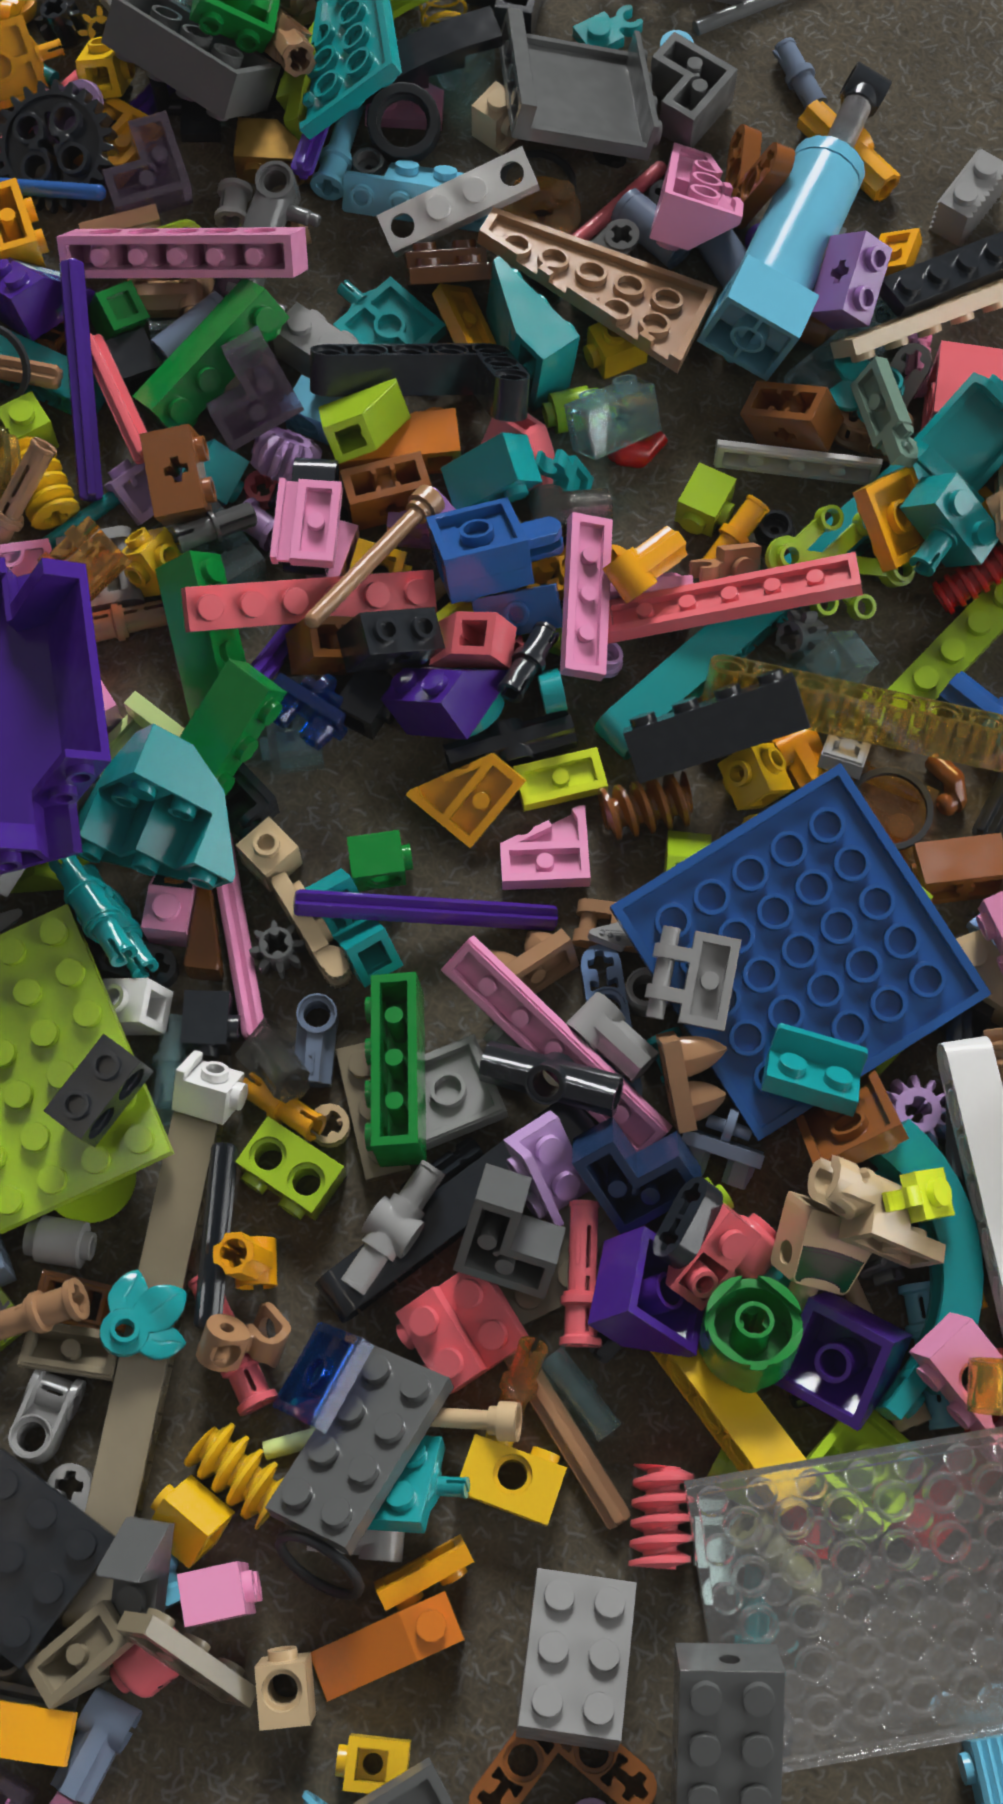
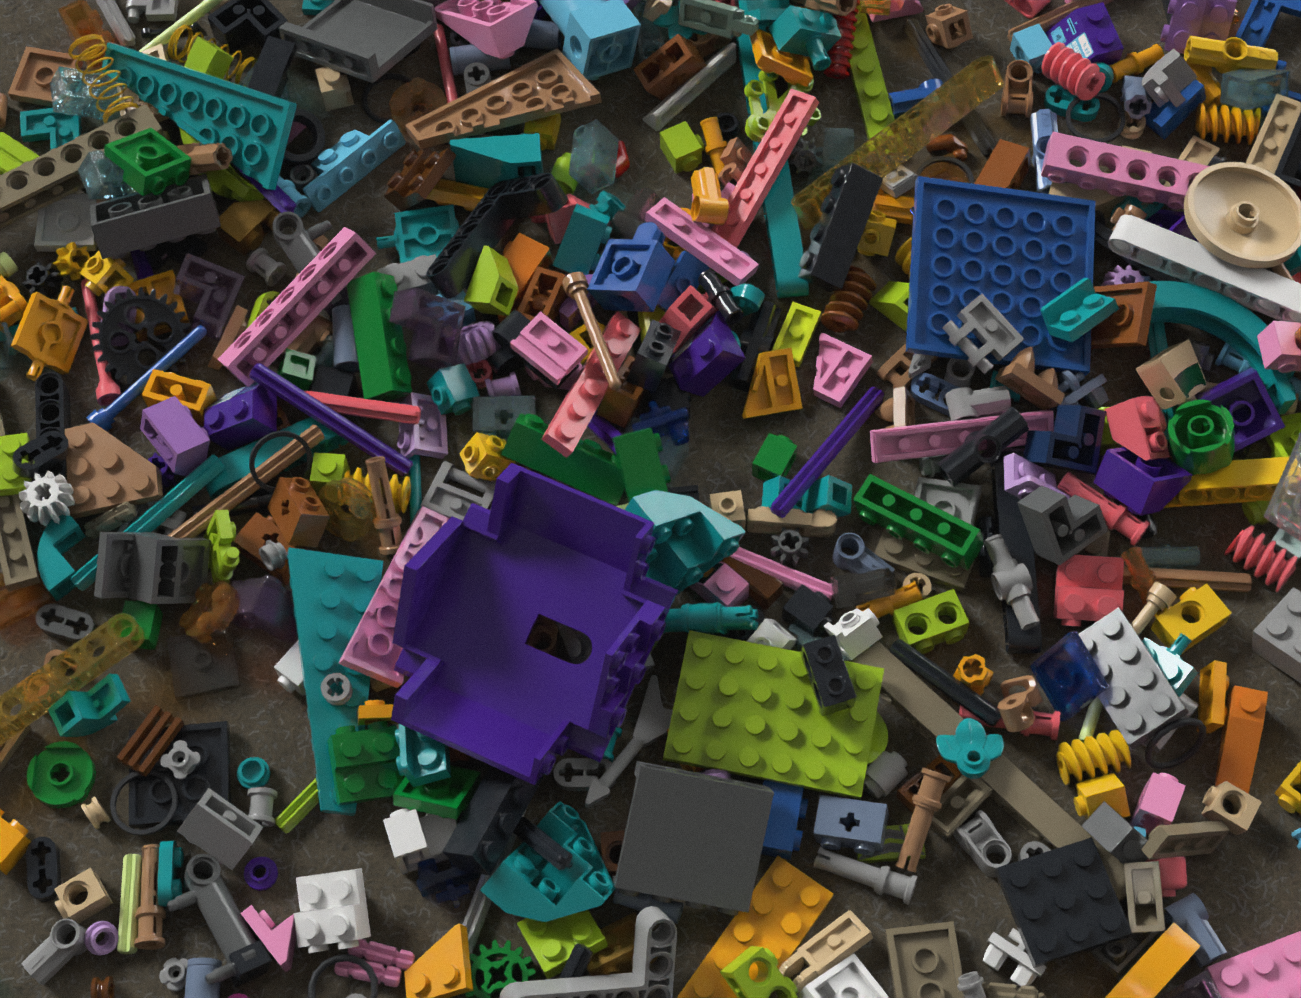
camera: 50 degrees left, 5 degrees down
(99, 553) = (469, 487): clear orange plate -> none
(163, 456) = (435, 396): dark orange brick -> none
(214, 526) = (497, 406): dark grey axle -> none
(459, 202) = (383, 141): white piece -> none
(687, 1222) = (1122, 425): black beam -> none
(858, 1200) = (1181, 332): tan plate -> none
(923, 1194) = (1190, 300): neon yellow plate -> none

